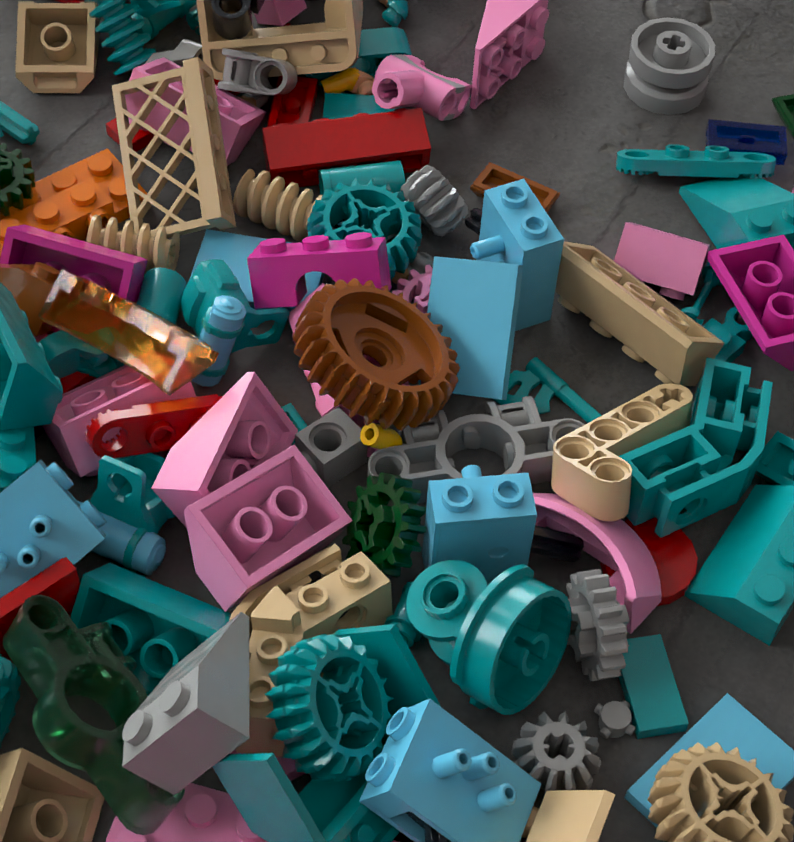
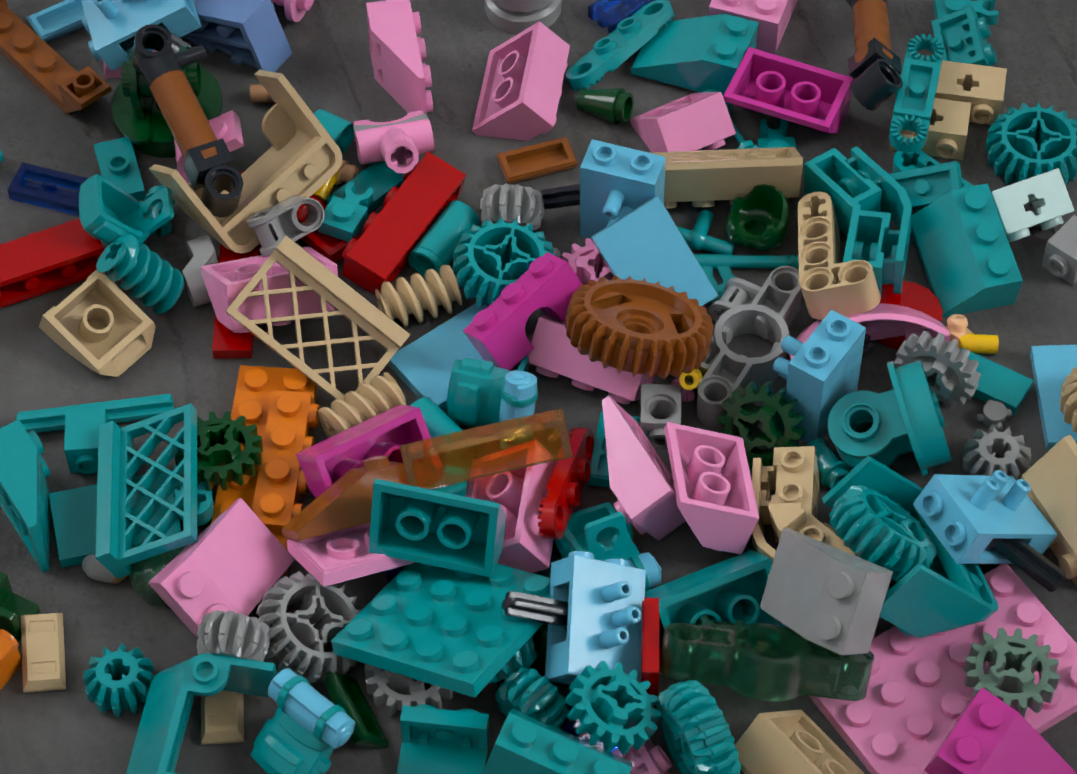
camera: 45 degrees left, 0 degrees up
(313, 104) = (348, 215): none -> teal plate
(560, 349) = (698, 238): none -> teal piece
(577, 133) = (522, 85): none -> bright pink slope
(618, 372) = (758, 219): none -> dark green hair
(626, 198) = (608, 104): none -> dark green cone
(676, 633) = (976, 343): none -> yellow arm

